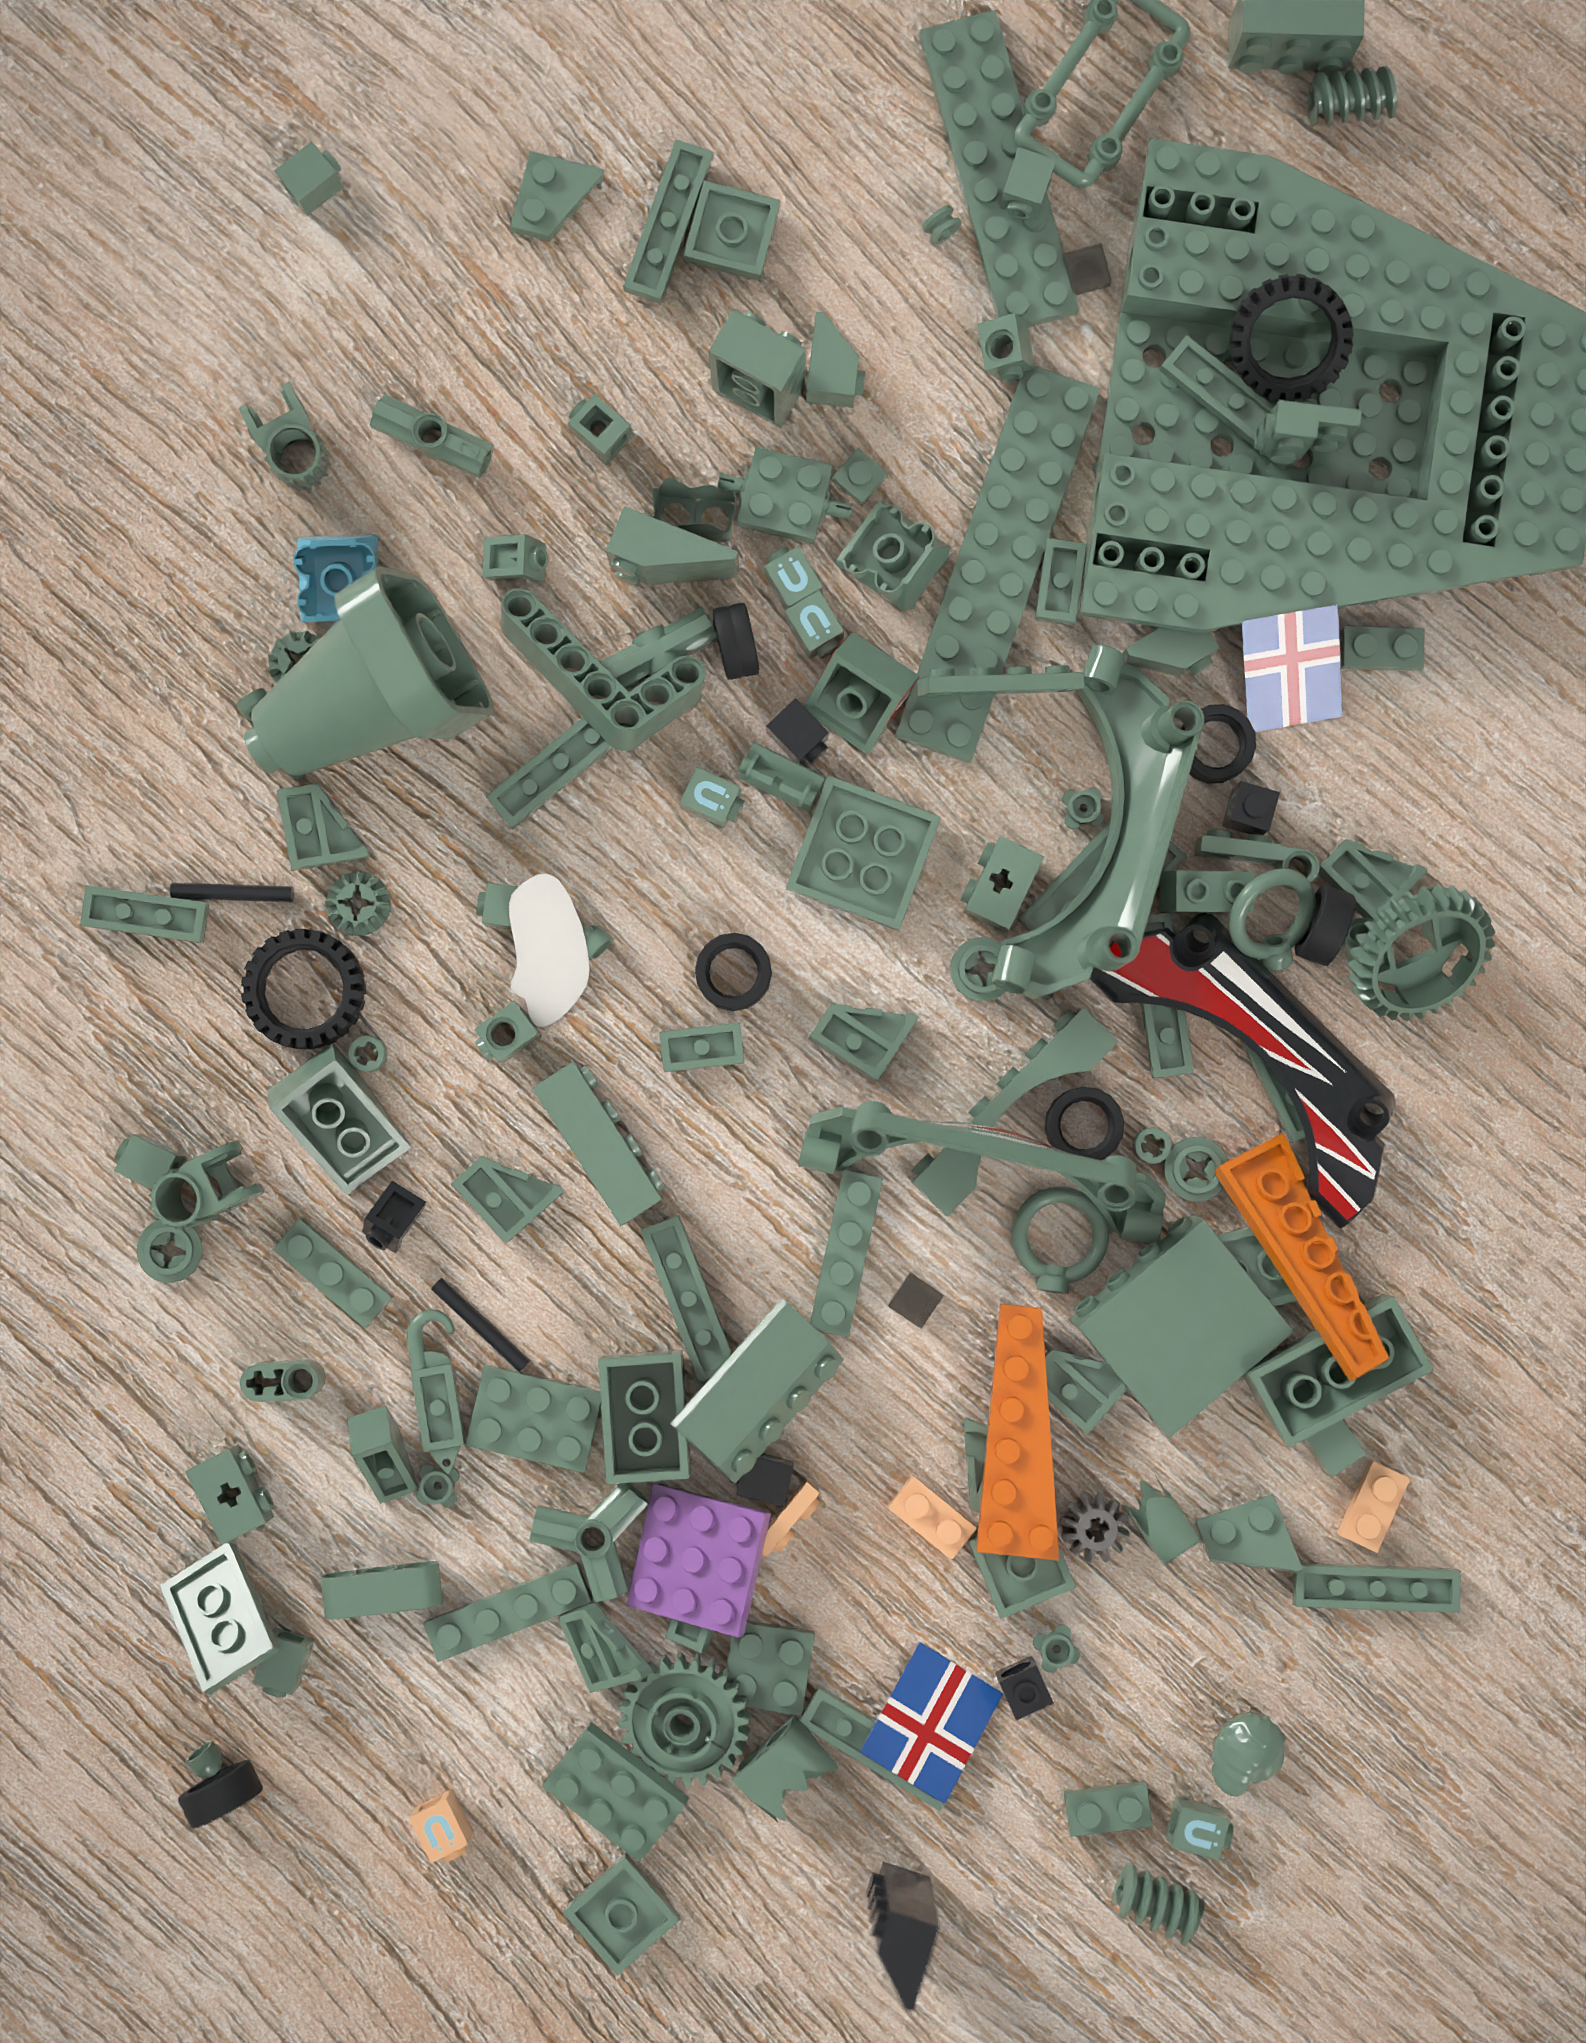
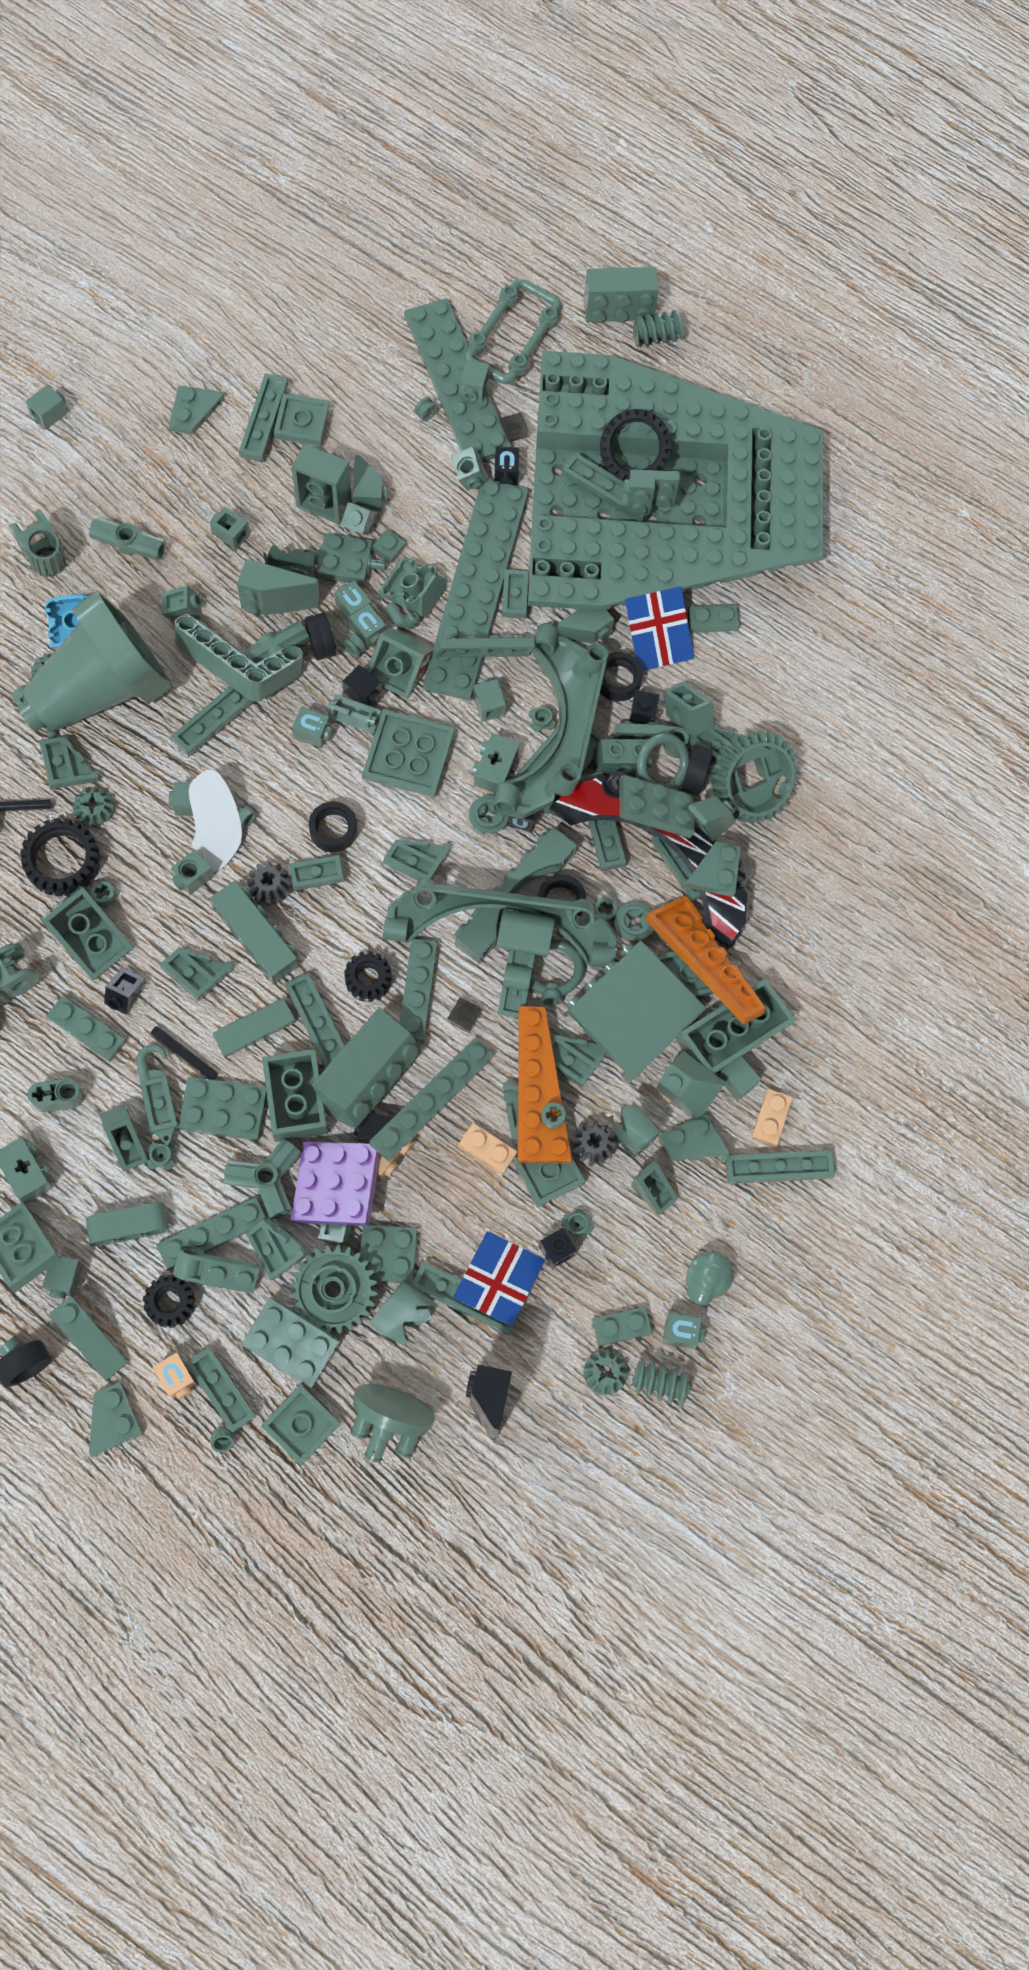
camera: 10 degrees left, 15 degrees down
(317, 1756) = (88, 1338): none -> sand green slope
(348, 1877) = (112, 1420): none -> sand green wing
(428, 1735) = (152, 1297): none -> black tyre
(505, 1923) = (221, 1439): none -> sand green hinge
(508, 1851) = (221, 1390): none -> sand green plate
(509, 1679) = (215, 1271): none -> sand green plate
(589, 1293) = (254, 1027): none -> sand green tile
(613, 1055) = (273, 874): none -> flat silver gear
(756, 1926) = (390, 1414): none -> sand green piece
(770, 1201) = (368, 991): none -> black tyre
(789, 656) = (353, 645): none -> sand green bush
(813, 428) = (358, 518): none -> sand green brick
(853, 1443) = (431, 1100): none -> sand green plate
(871, 614) = (402, 620): none -> sand green arm
(1000, 770) = (489, 700): none -> sand green brick
(1018, 1202) = (524, 938): none -> sand green plate
(1047, 1498) = (546, 1111): none -> sand green bush
(1068, 344) = (506, 465): none -> black brick
(1076, 1855) = (592, 1373): none -> sand green gear
(1179, 1604) = (654, 1188): none -> sand green slope
(1253, 994) = (655, 806): none -> sand green plate
(1254, 1454) = (690, 1085): none -> sand green slope
(1325, 820) = (689, 709): none -> sand green brick
(1340, 1112) = (717, 870): none -> sand green wing
(1344, 1023) = (713, 816): none -> sand green slope

